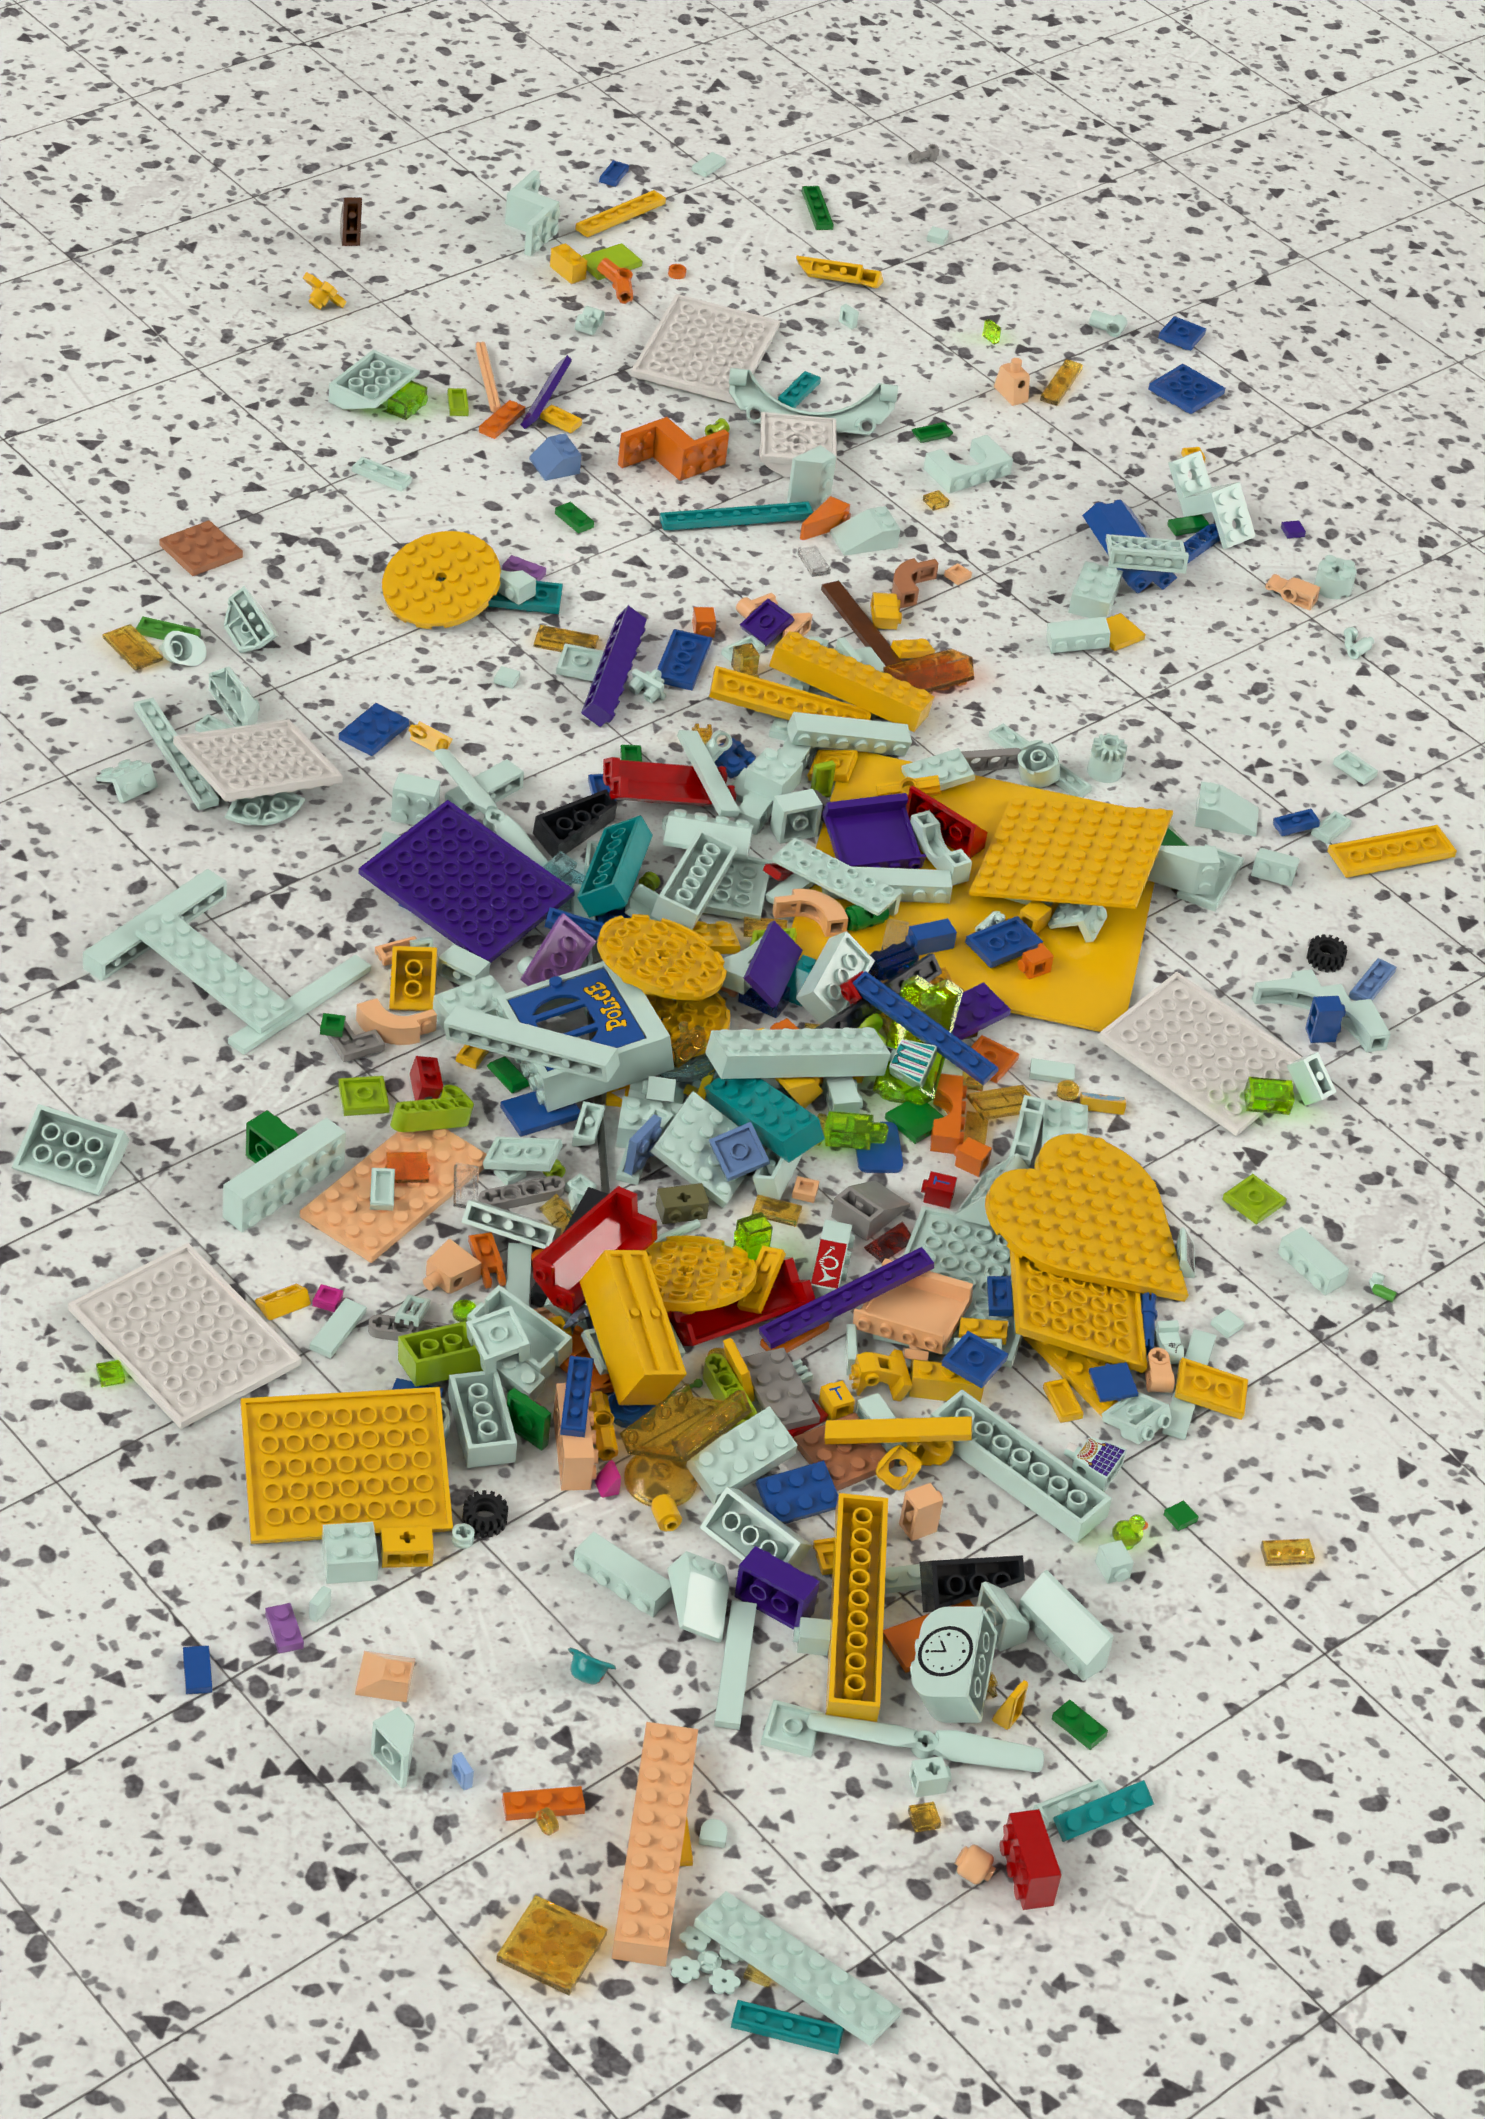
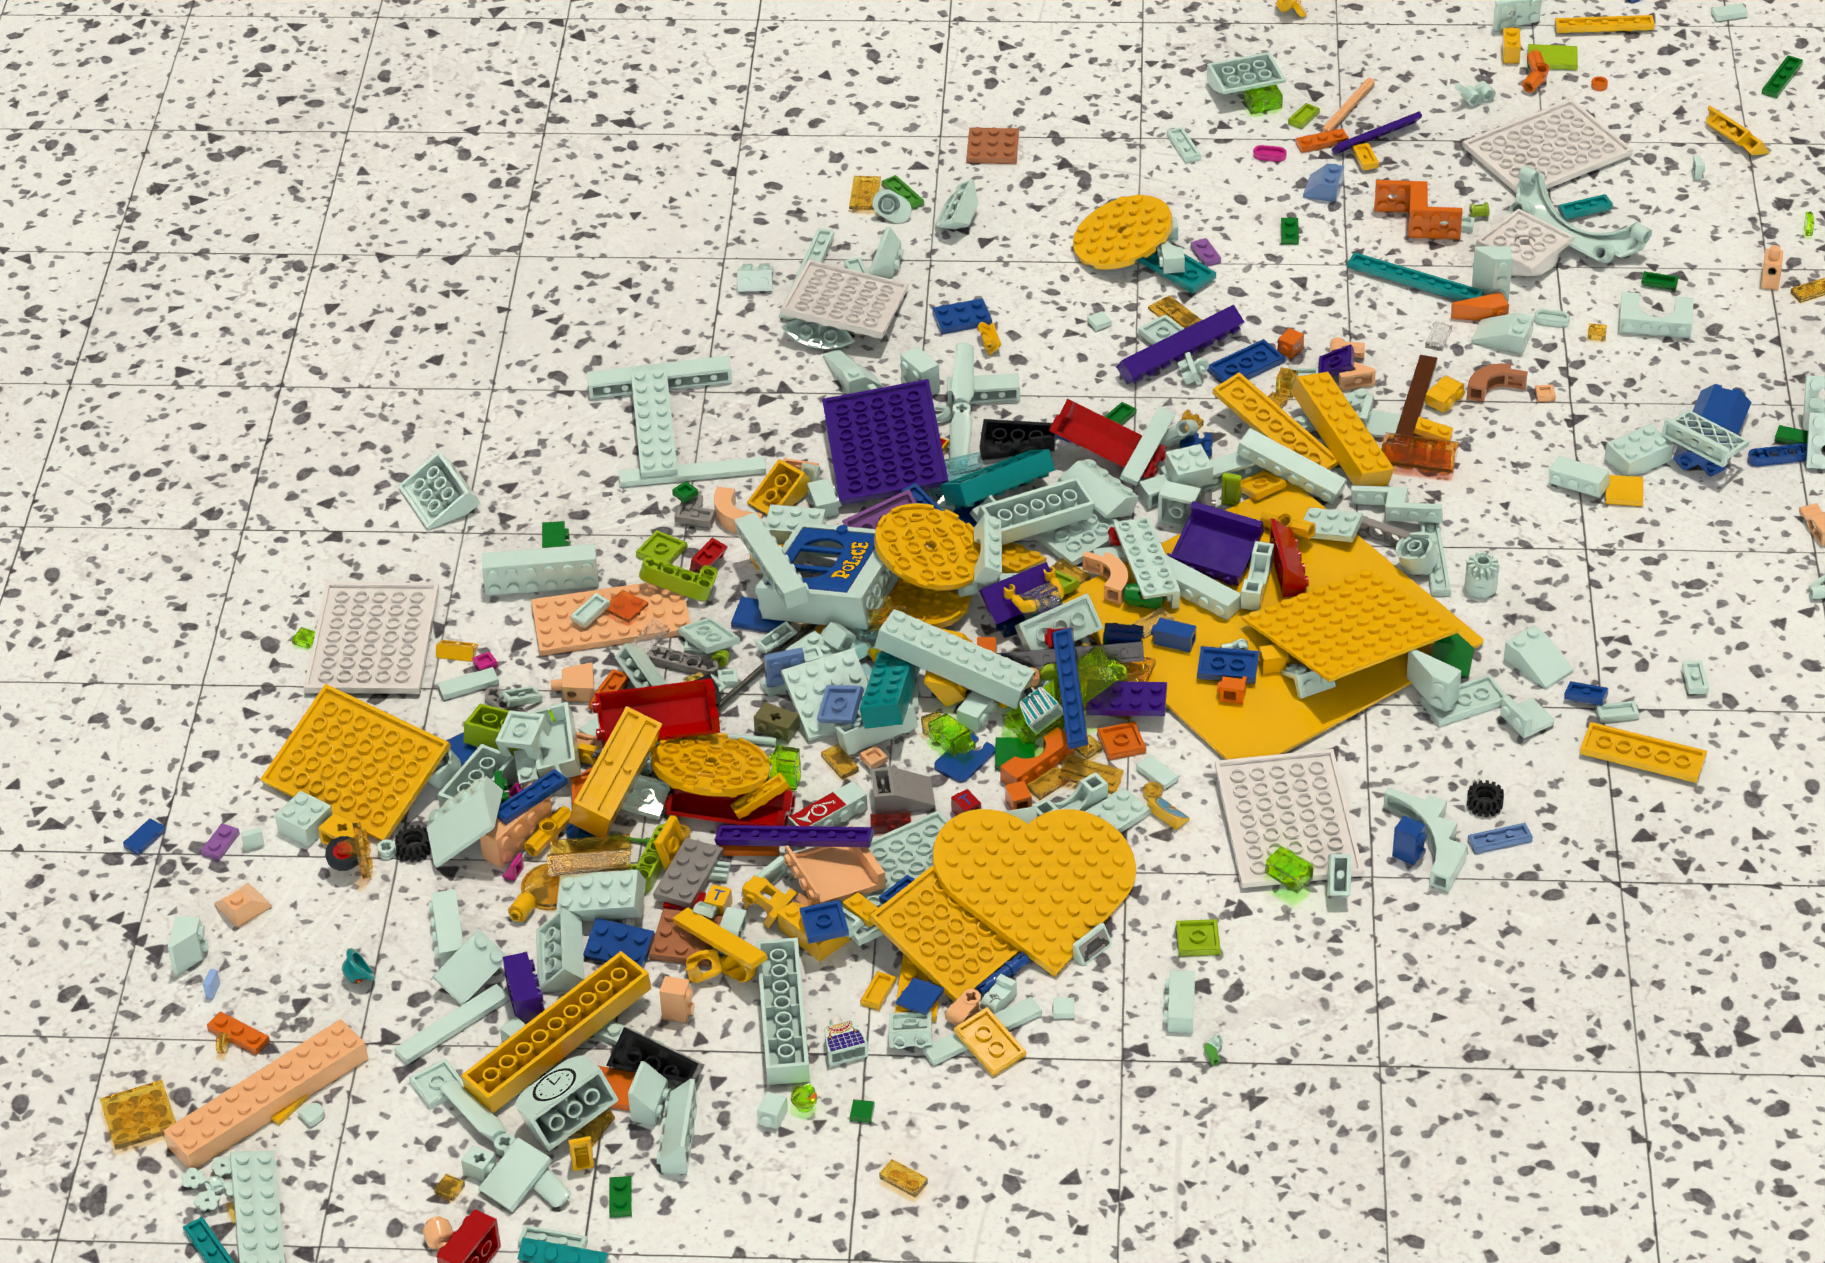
camera: 50 degrees right, 0 degrees up
(337, 834) = (850, 373): none -> light aqua wedge
(452, 1554) = (348, 852): none -> plate
(469, 450) = (1269, 153): none -> dark pink tile
(537, 1459) = (463, 819): none -> light aqua slope
(734, 948) = (989, 563): none -> light aqua arch
(802, 957) = (1040, 598): none -> torso
(844, 1413) = (705, 909): none -> light aqua tile
(891, 501) = (1552, 318): none -> light aqua tile
(967, 728) = (1397, 504): none -> light aqua bracket
(975, 1764) = (515, 1174): none -> light aqua tile

